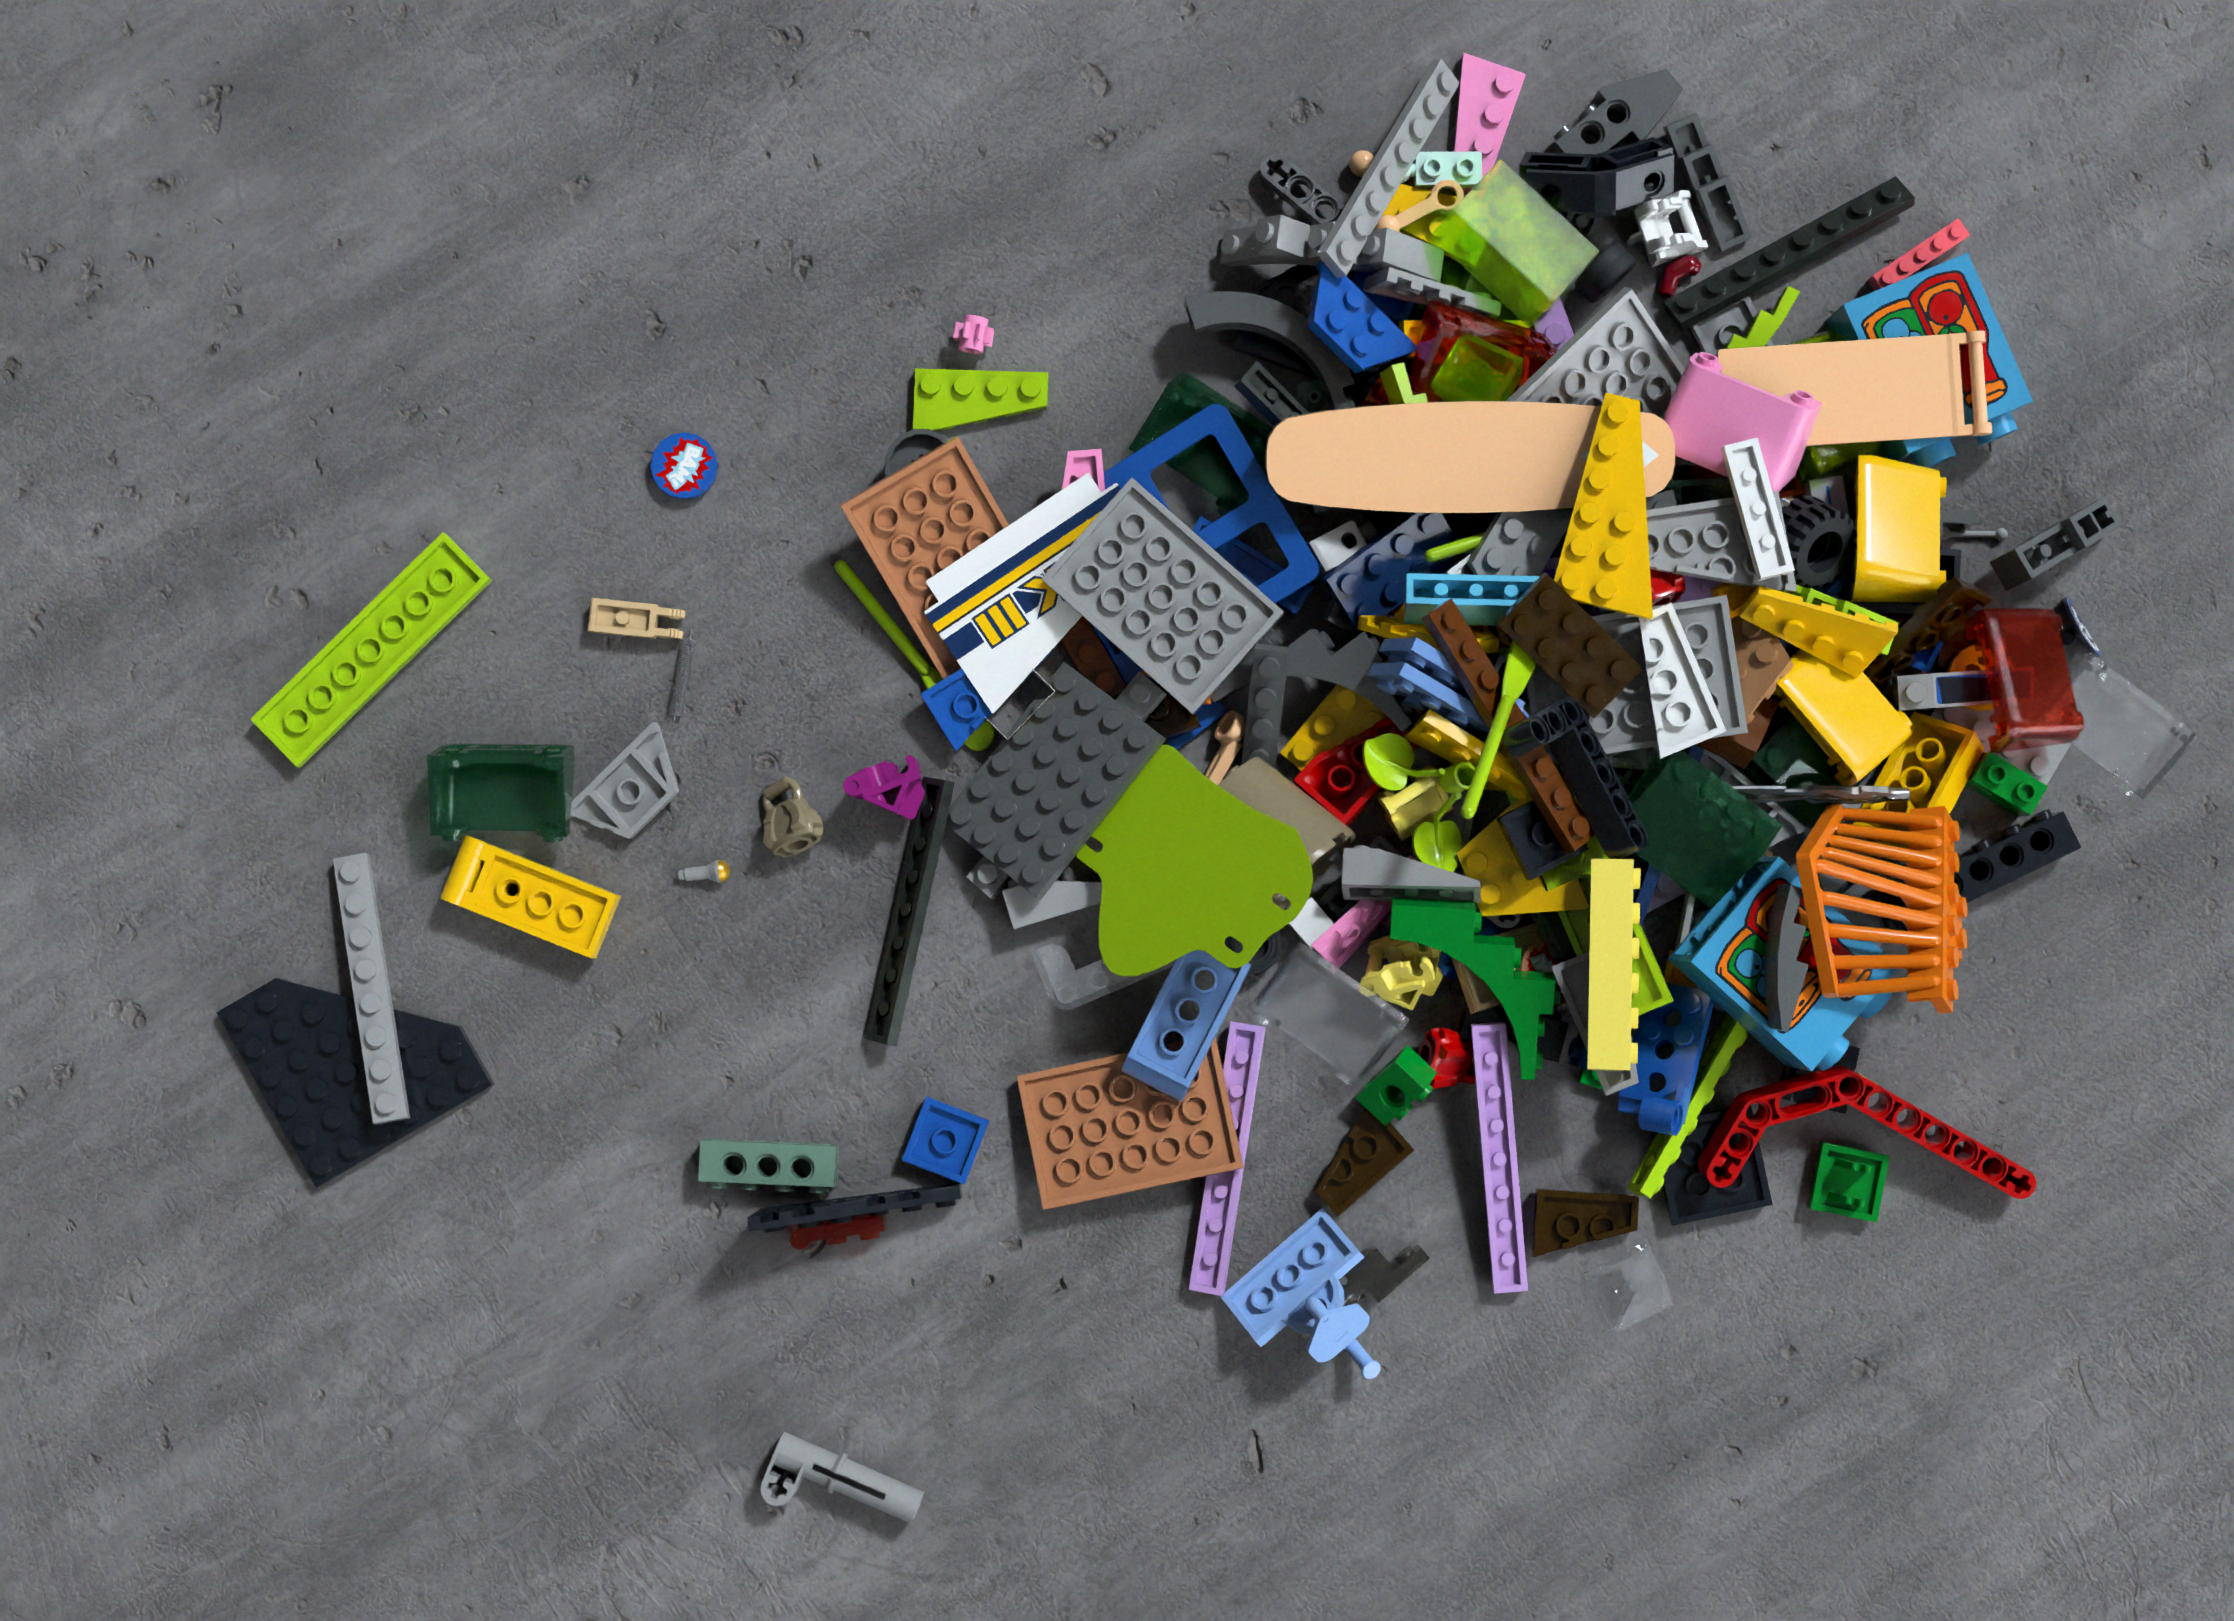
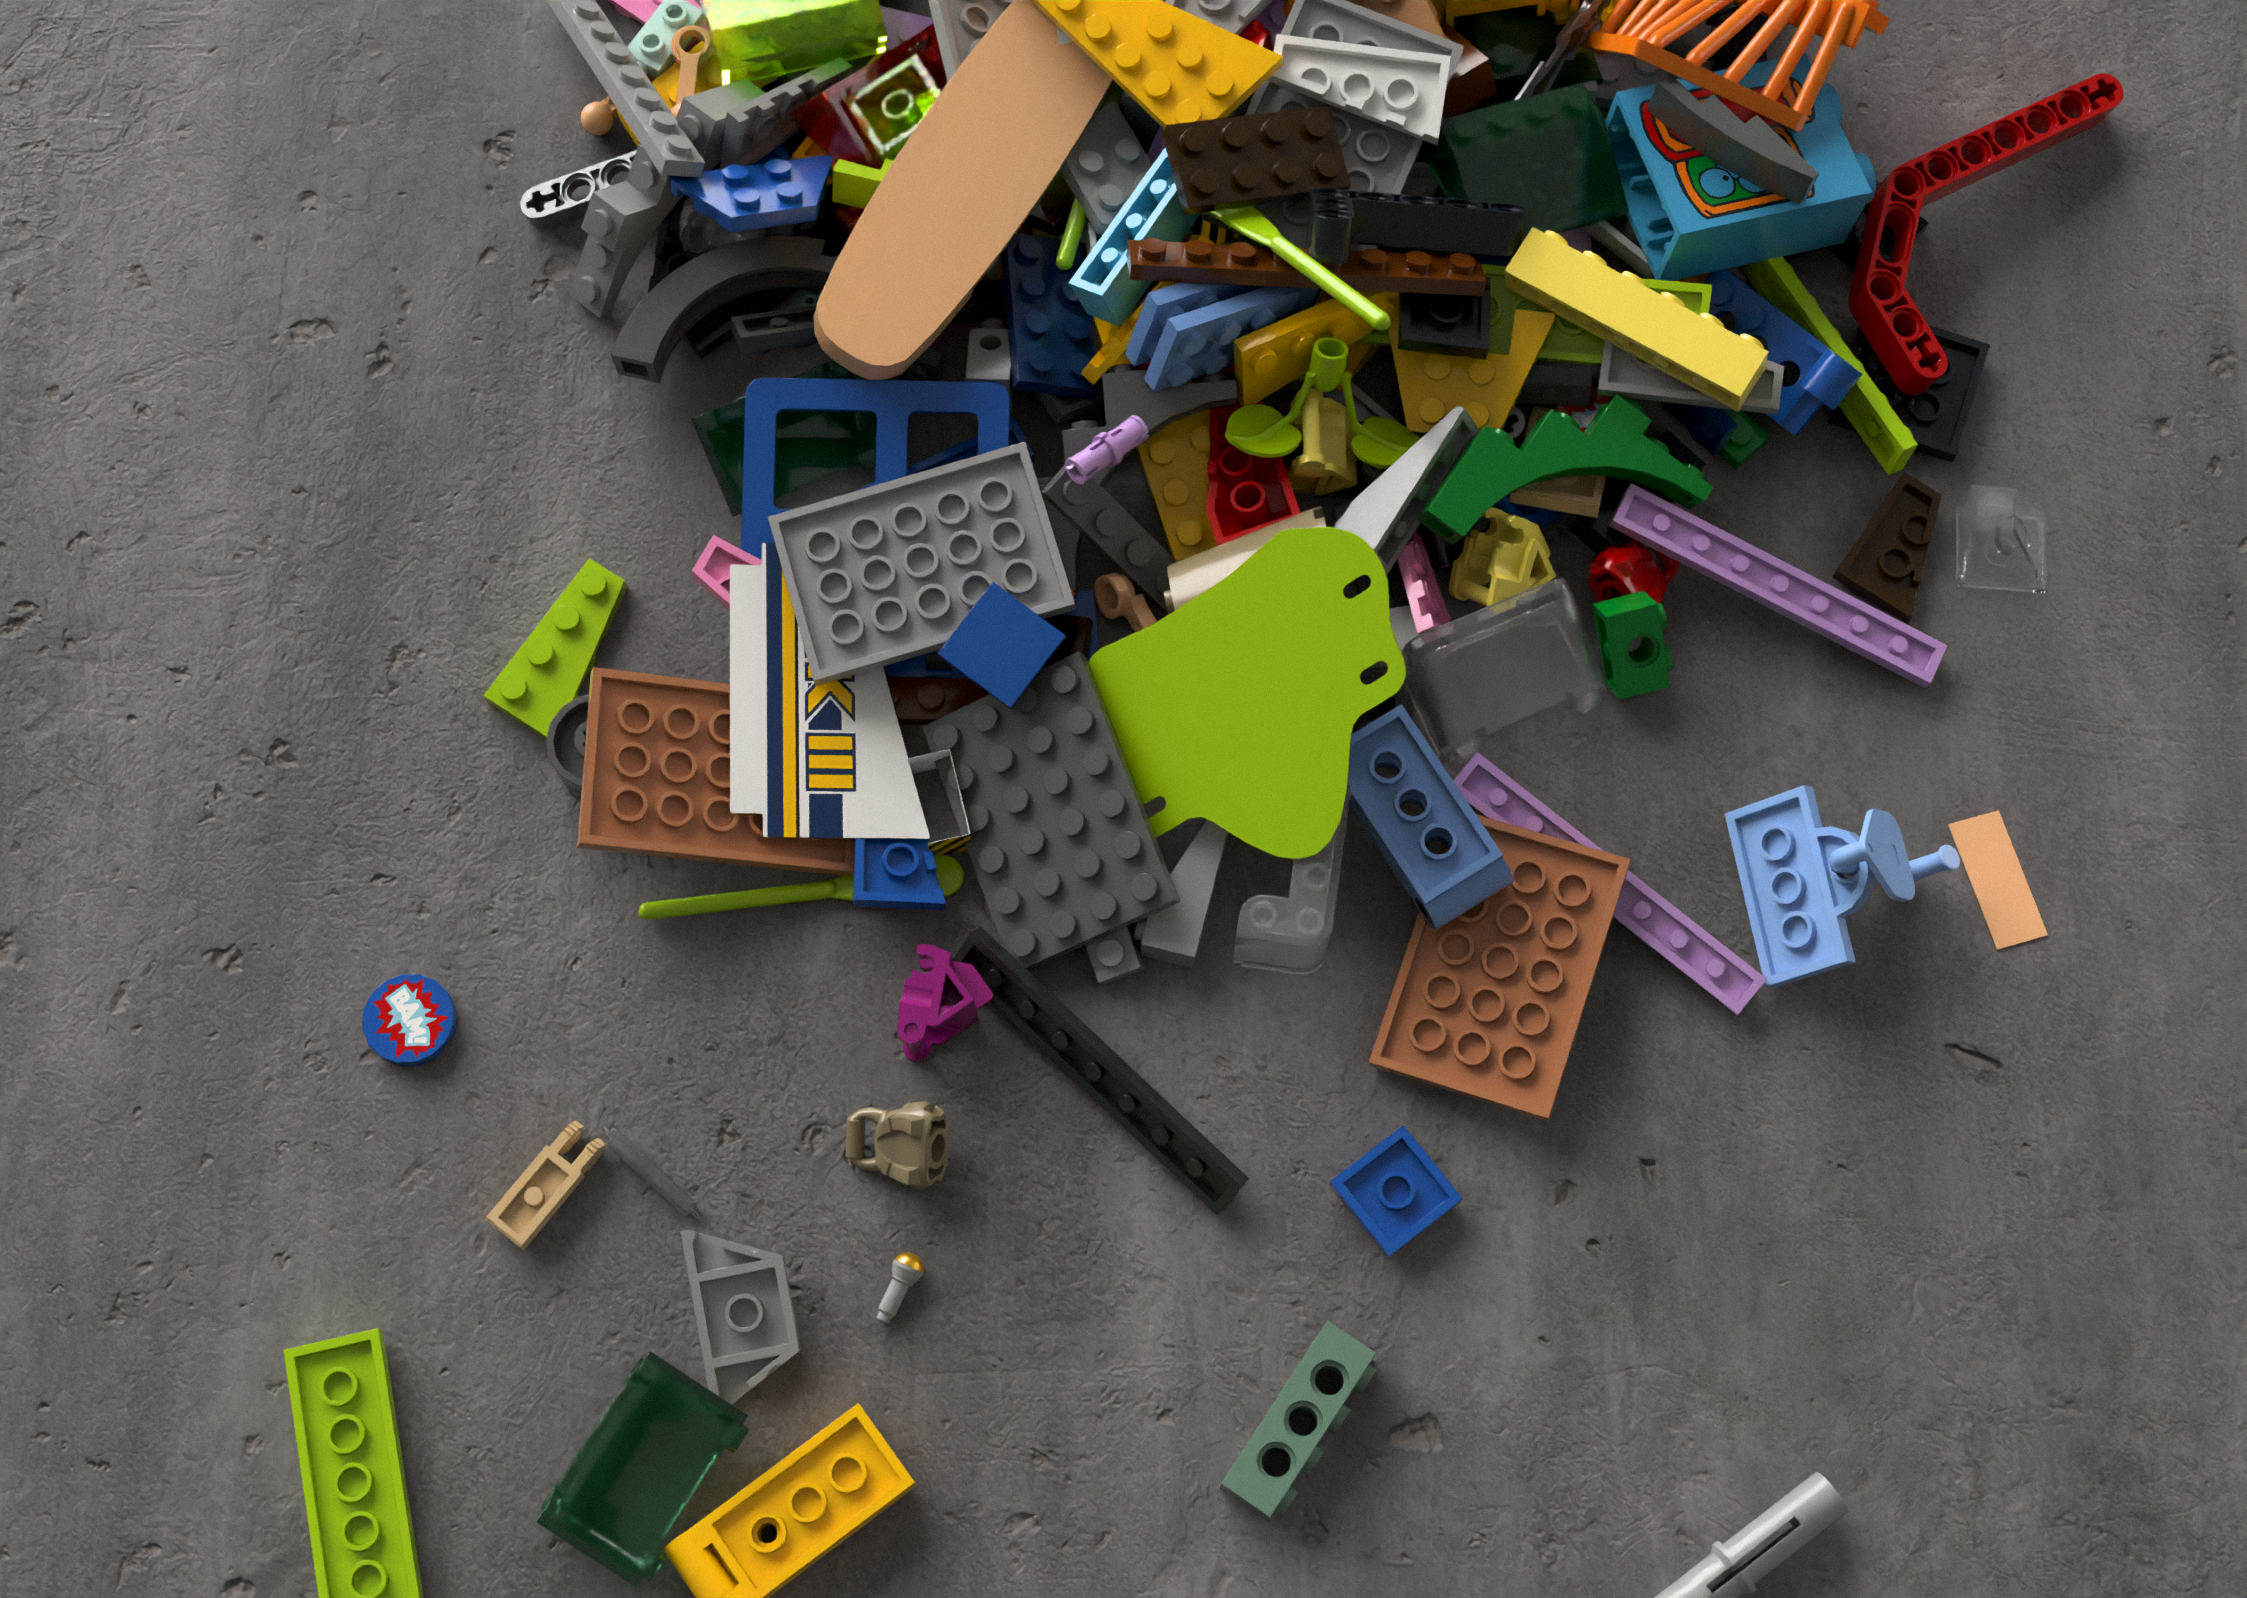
camera: 60 degrees left, 15 degrees down
(845, 1208) = (1411, 1353): black wing -> none
(866, 1227) = (1431, 1387): clear red plate -> none
(973, 334) = (491, 608): bright pink gear -> none
(1134, 685) = (1001, 645): none -> blue tile
(1307, 670) = (1107, 449): none -> lavender pin
(1362, 1162) = (1696, 738): dark brown wing -> none
(1378, 1275) = (1842, 791): clear smoke plate -> none
(1387, 1406) = (1998, 880): none -> light nougat sticker
(1848, 1182) = (2006, 260): green plate -> none

